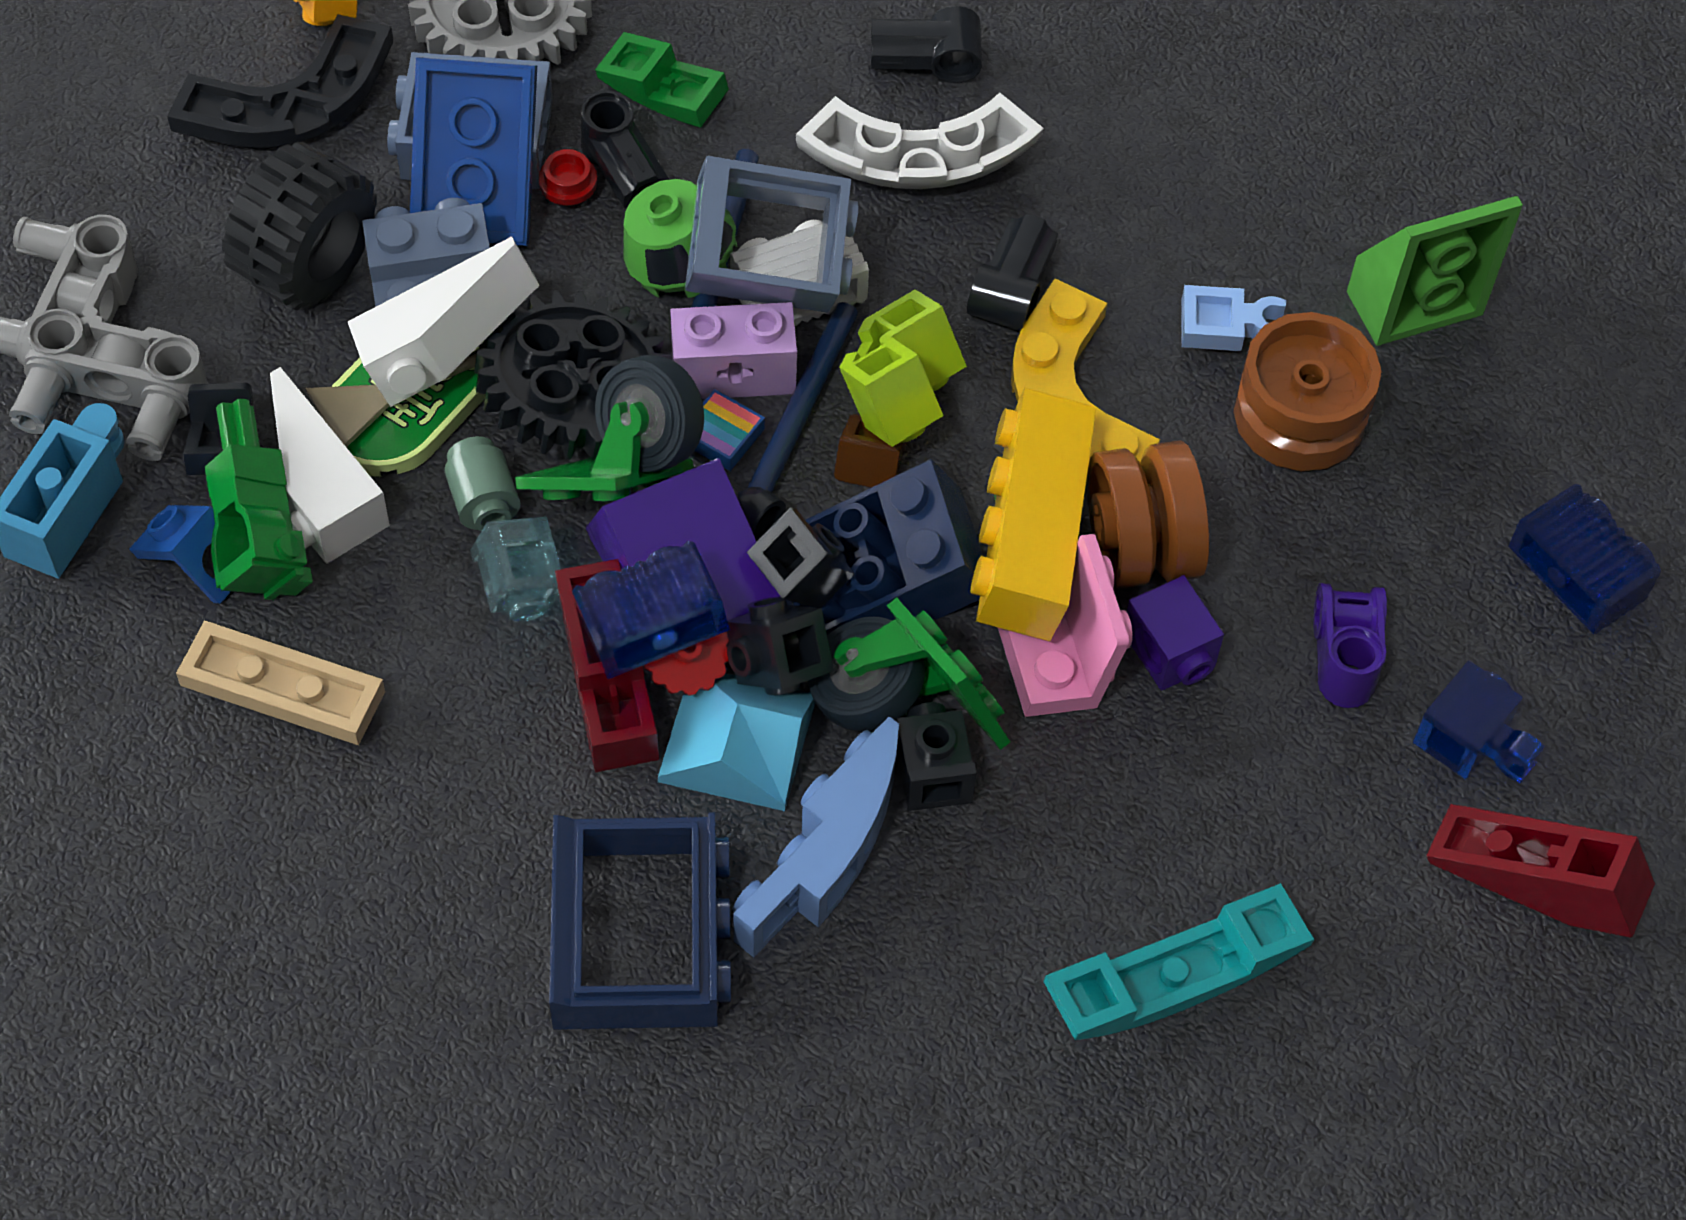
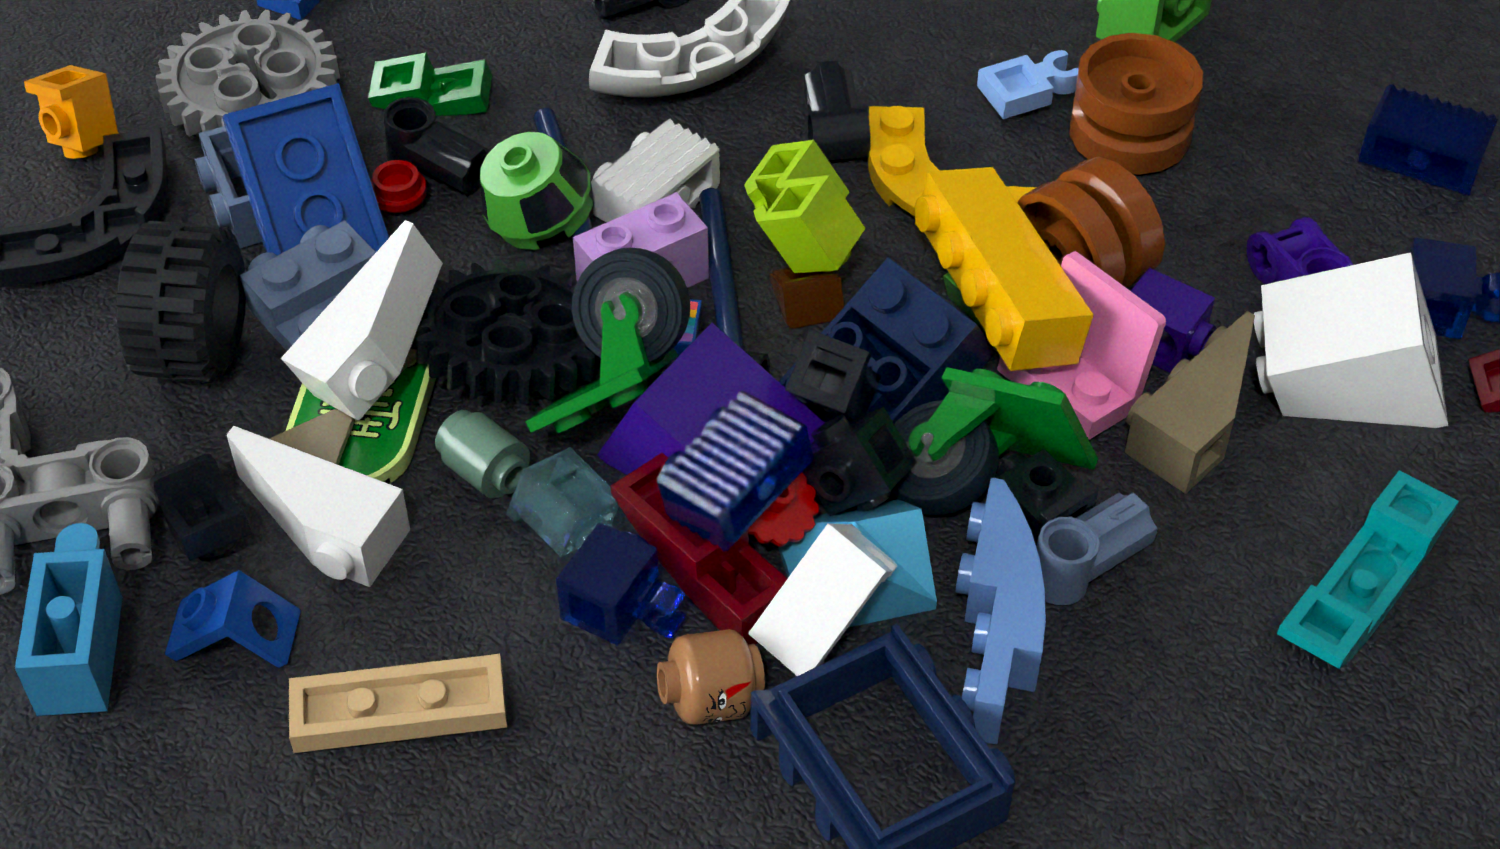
camera: 25 degrees left, 10 degrees down
(253, 526) = (265, 542): green piece -> none
(516, 661) = (614, 584): none -> clear blue brick
(541, 781) = (710, 676): none -> medium nougat head
(666, 757) = (822, 597): none -> white hinge
(775, 185) = (664, 90): sand blue window -> none
(951, 816) = (1086, 546): none -> sand blue piece
(1132, 740) = (1189, 419): none -> dark tan slope
(1334, 744) = (1352, 346): none -> white slope

